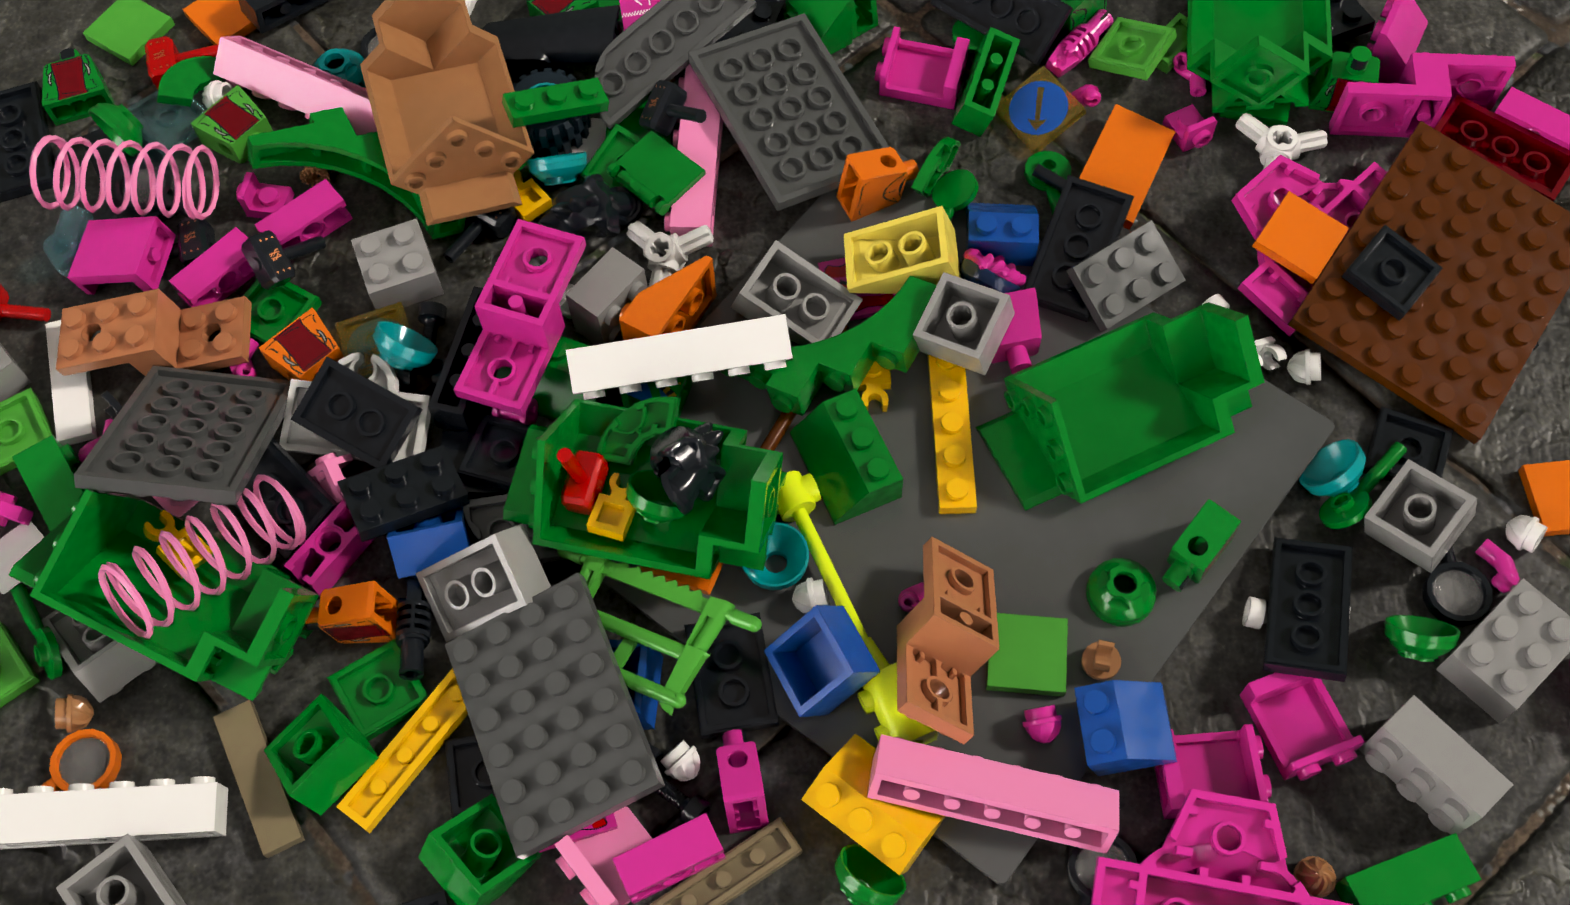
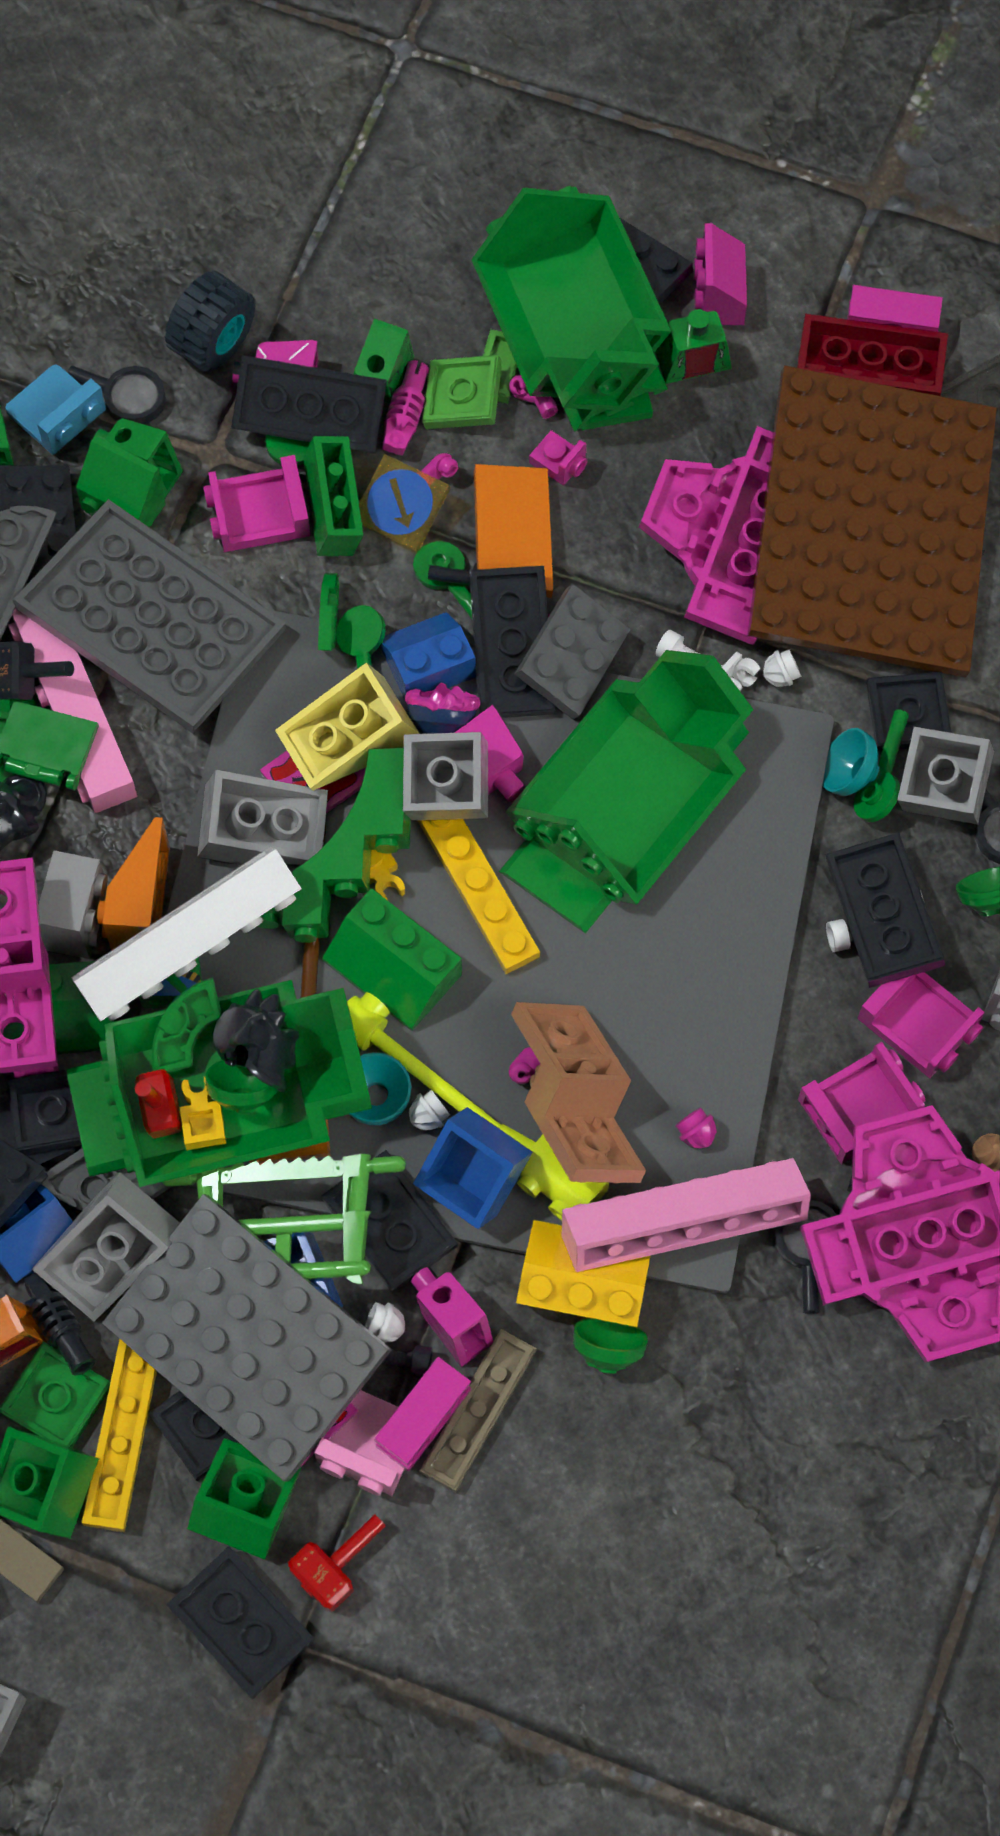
camera: 30 degrees left, 5 degrees up
(667, 252) = (83, 824): white bush -> none
(873, 181) = (276, 659): orange torso -> none
(1029, 656) = (658, 1071): bright green tile -> none
(1101, 660) = (722, 1046): medium nougat plate -> none
(1118, 607) = (706, 988): green piece -> none
(1124, 726) = (772, 1097): blue slope -> none
(1208, 538) = (765, 885): green torso -> none
(1279, 139) = (645, 439): white bush -> none
(1300, 237) = (722, 540): orange tile -> none
(1392, 272) = (822, 542): black tile -> none
(1421, 93) = (770, 330): dark pink bracket -> none

